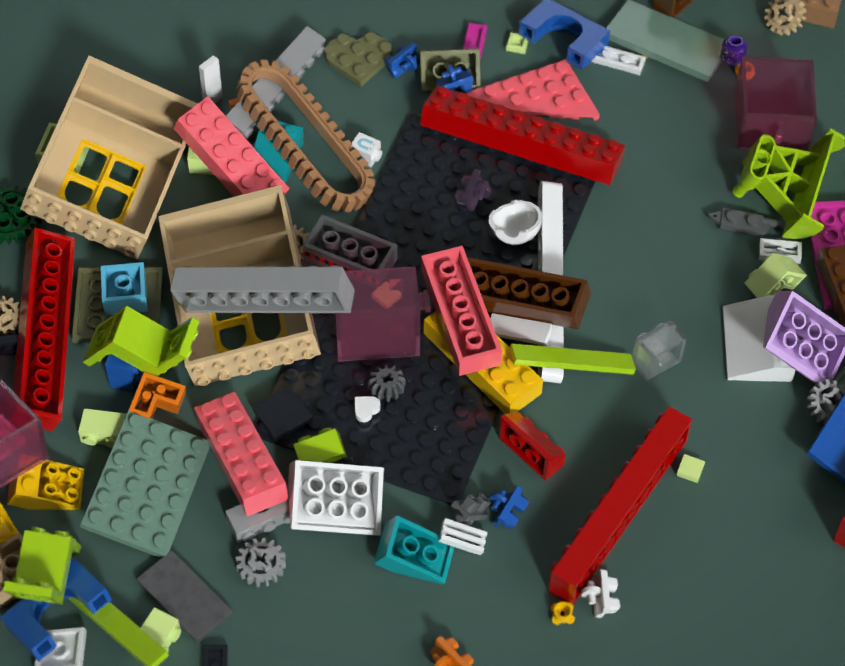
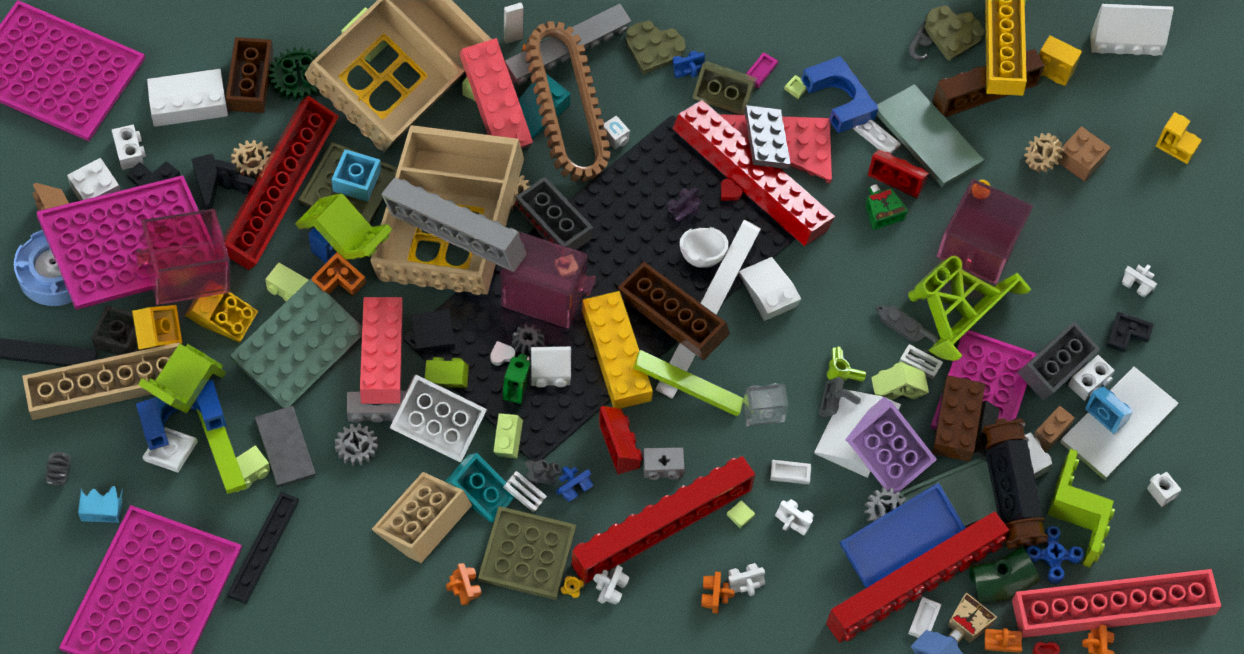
camera: 20 degrees right, 5 degrees up
(369, 607) = (422, 516): none -> tan slope
(396, 416) = (518, 372): none -> green torso
(417, 486) = (508, 436): none -> yellowish green brick
(425, 398) = (550, 366): none -> white slope
(455, 78) = (722, 98): blue hips -> none
(461, 310) = (611, 305): coral brick -> none
(498, 598) = (527, 553): none -> olive plate
(509, 162) = (730, 191): none -> red tile
(520, 96) = (767, 137): none -> plate
(521, 329) = (658, 339): white tile -> none
(588, 449) = (671, 457): none -> light grey brick
(599, 238) = (770, 288): none -> white slope
(660, 85) = (897, 173): none -> red slope
(664, 121) = (884, 207): none -> green torso
(710, 287) = (840, 367): none -> lime axle
(713, 565) = (713, 583): none -> orange hips
(715, 406) = (790, 472): none -> white tile
(716, 316) = (832, 393): none -> dark grey plate
(733, 49) = (978, 168): dark purple head -> none
(735, 532) = (748, 580): none -> white hips
(746, 449) = (794, 518): none -> white hips

